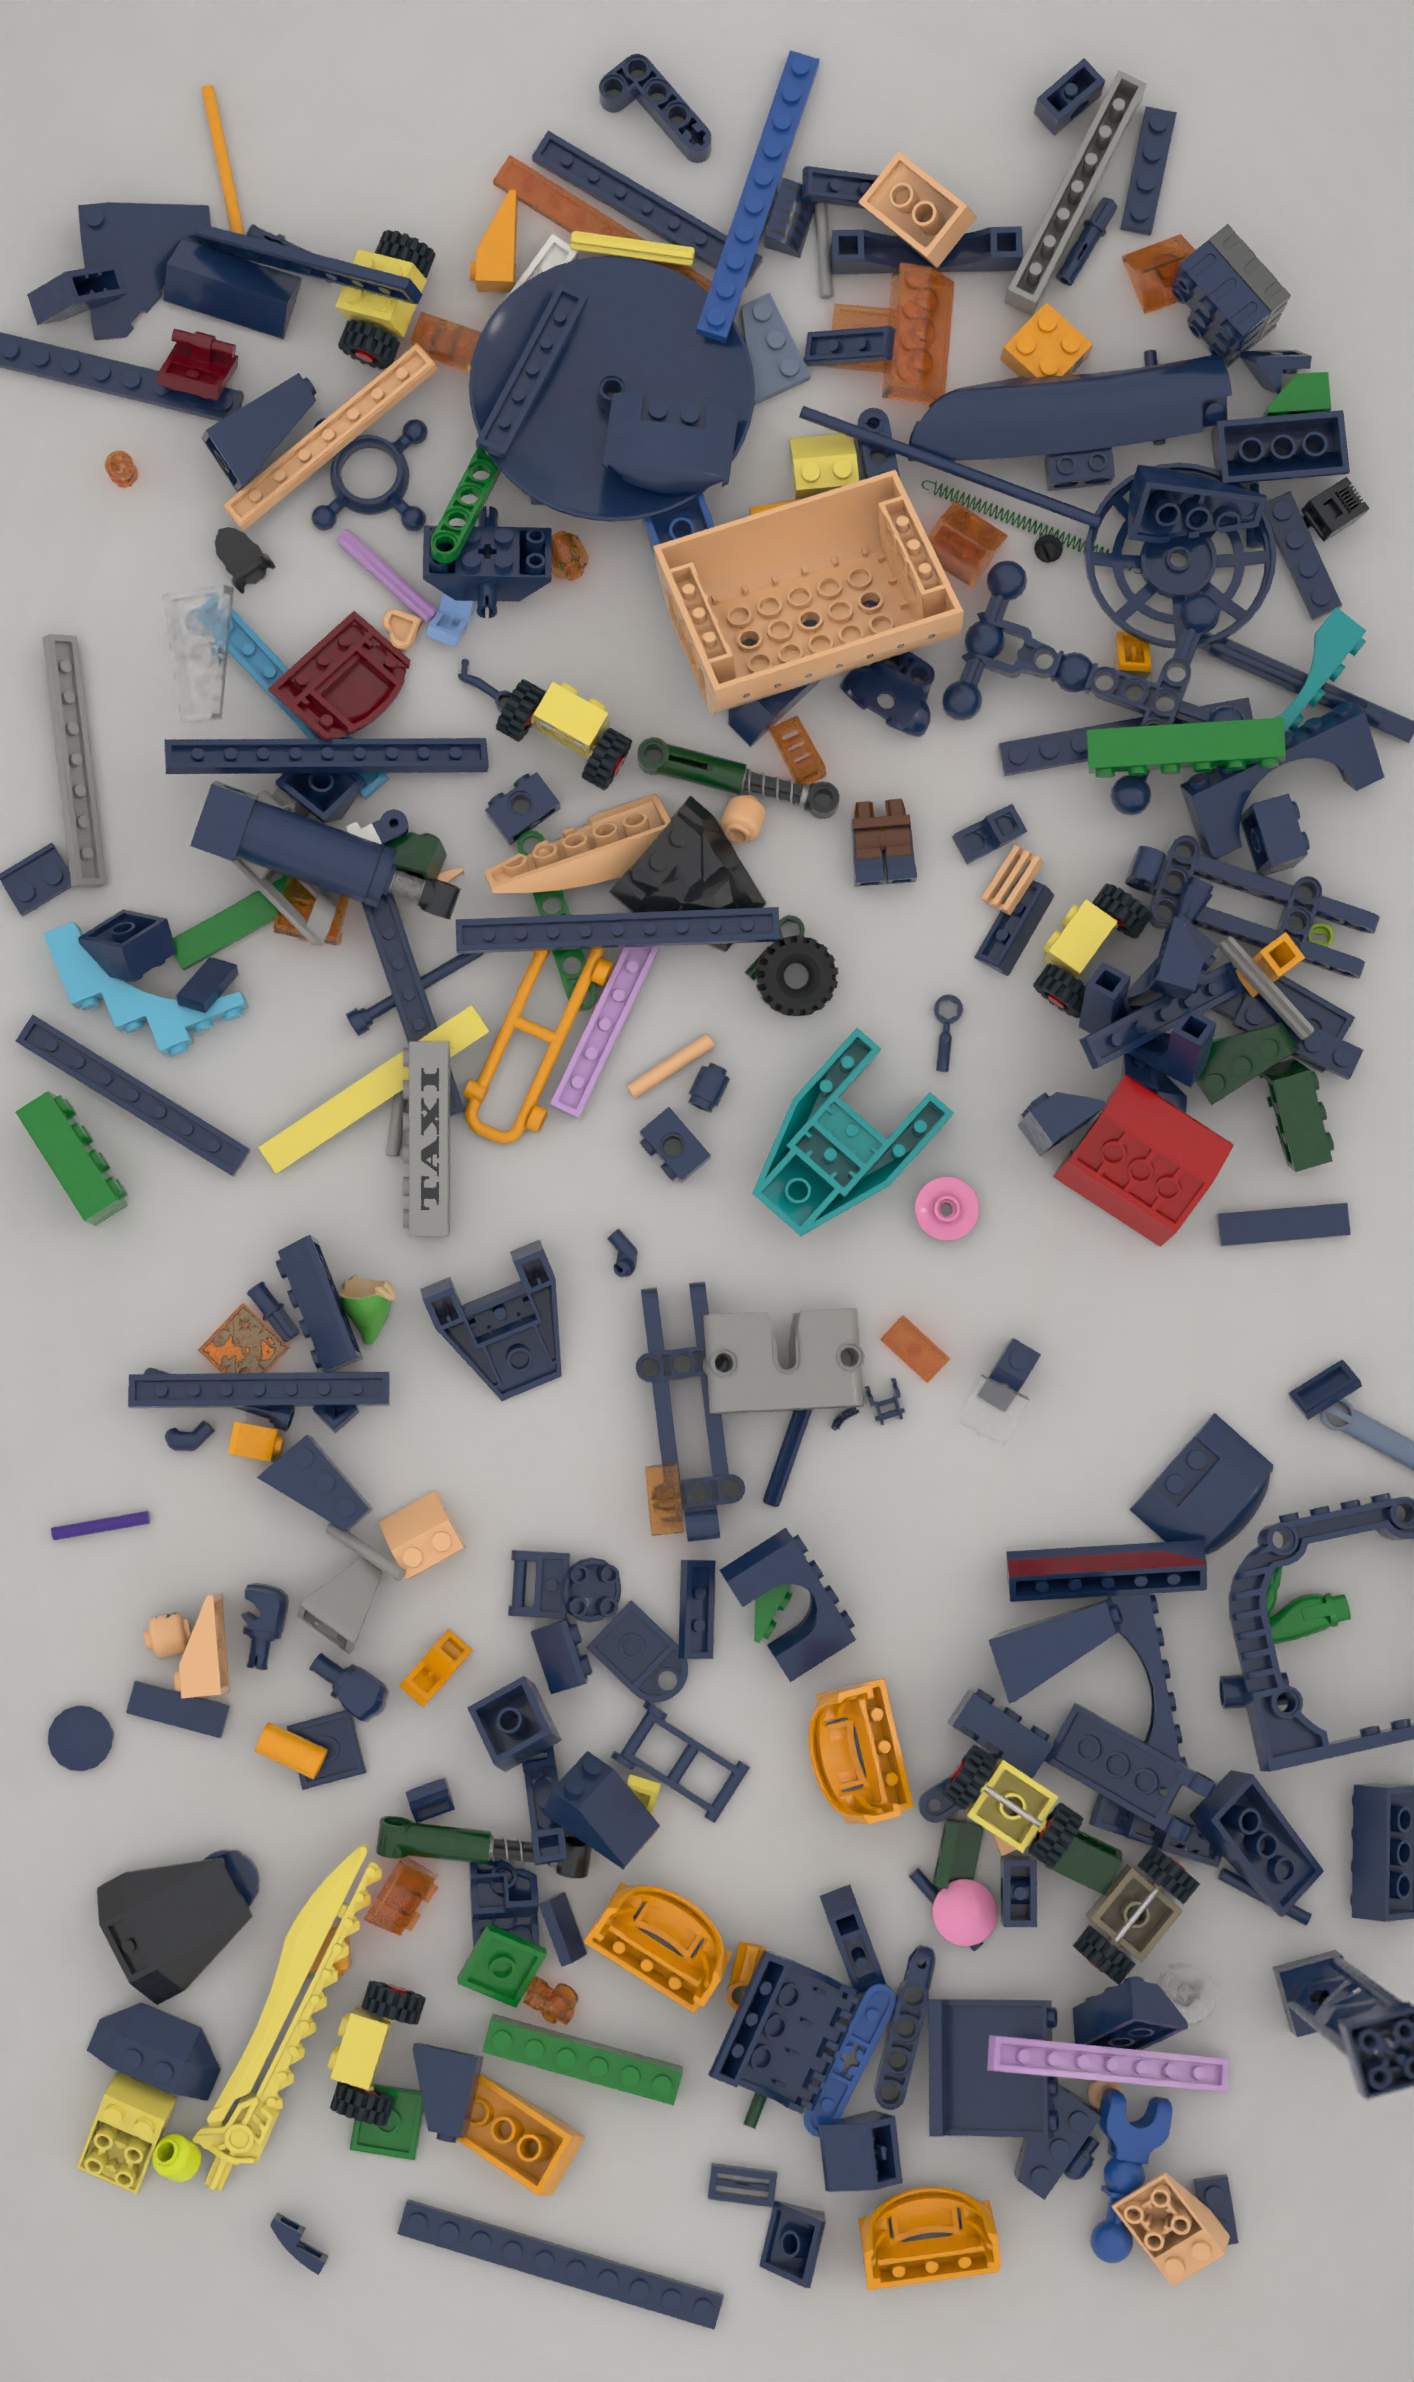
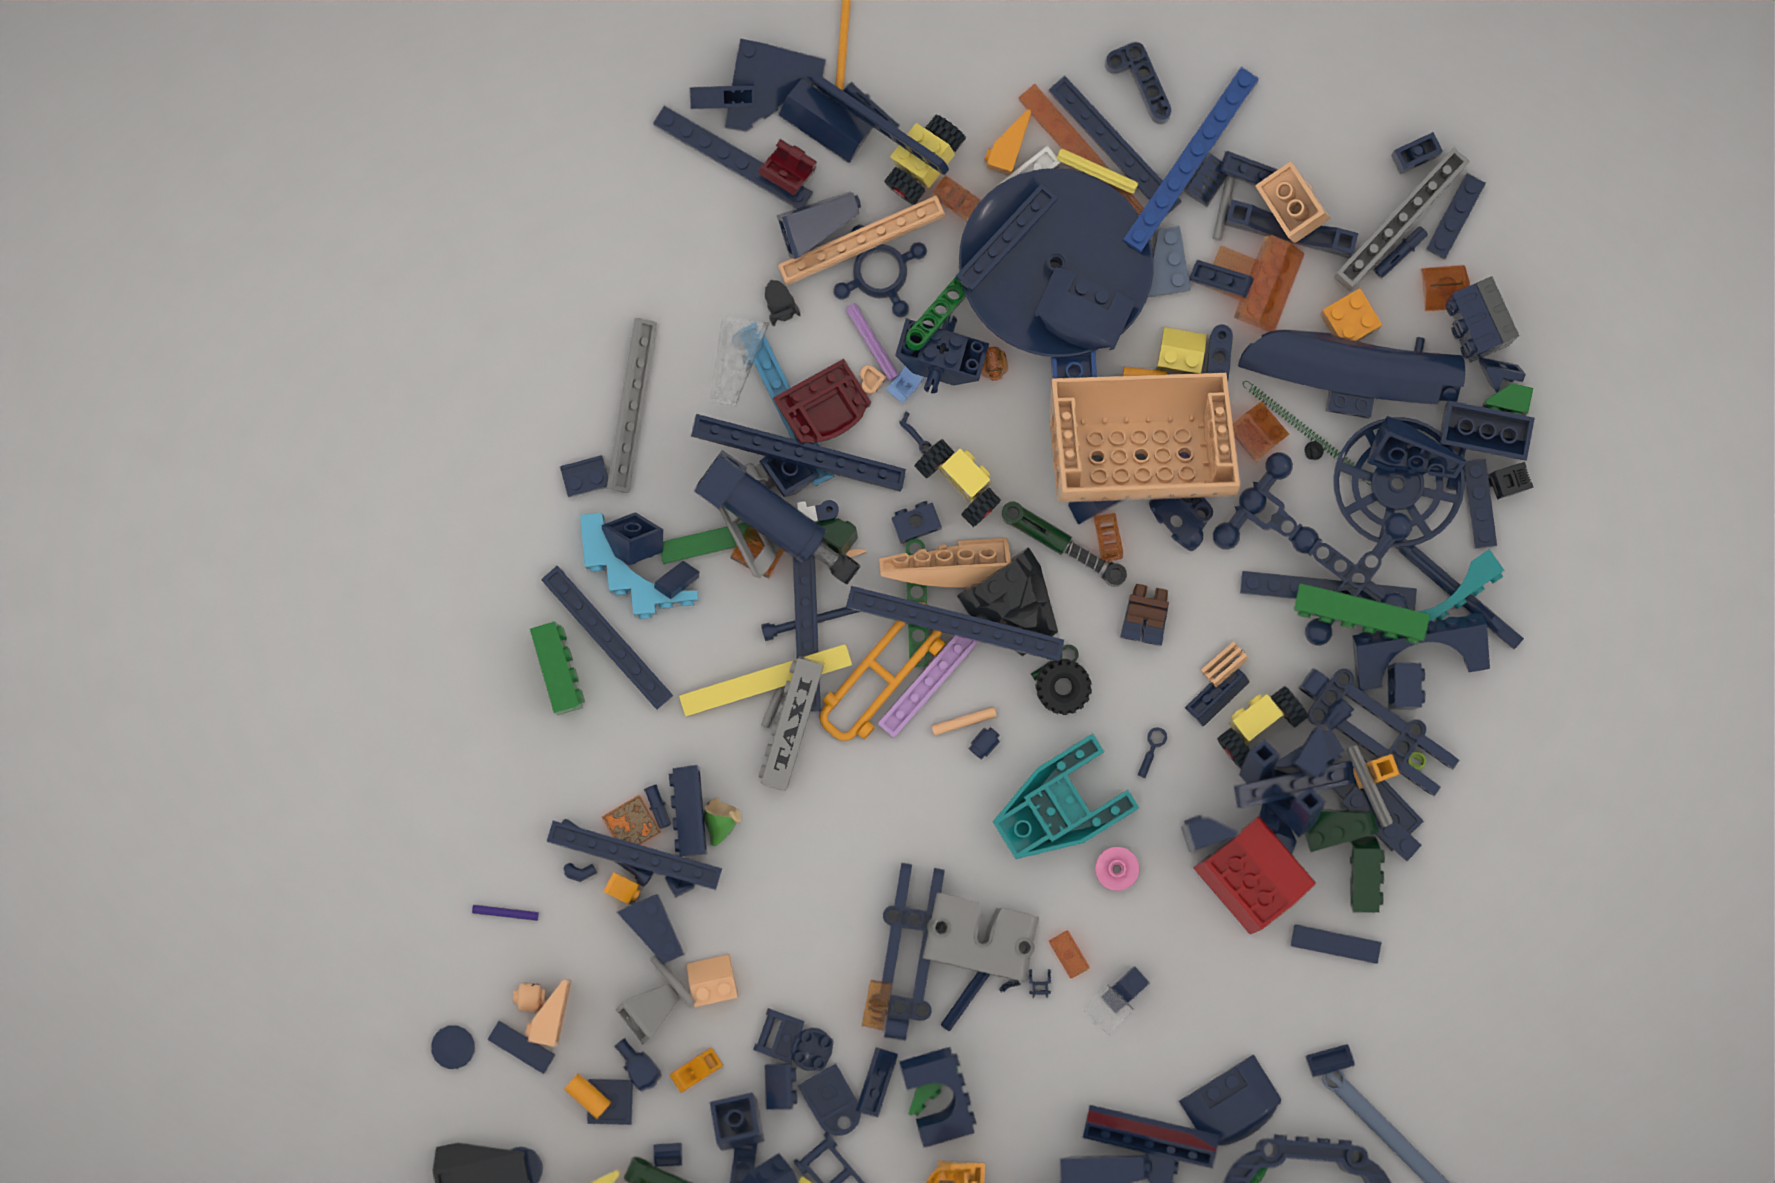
camera: 20 degrees right, 0 degrees up
(113, 464) = (713, 216): clear orange bush -> none
(269, 1626) = (597, 1010): dark blue piece -> none
(508, 1333) = (806, 865): dark blue wedge -> none
(626, 1254) = (898, 837): dark blue arm -> none
(667, 1127) = (950, 761): dark blue brick -> none
(743, 819) = (1059, 572): light nougat head -> none
(950, 467) = (1264, 379): dark blue piece -> none
(989, 834) = (1218, 629): dark blue slope -> none
(1132, 655) = (1347, 539): light orange slope -> none

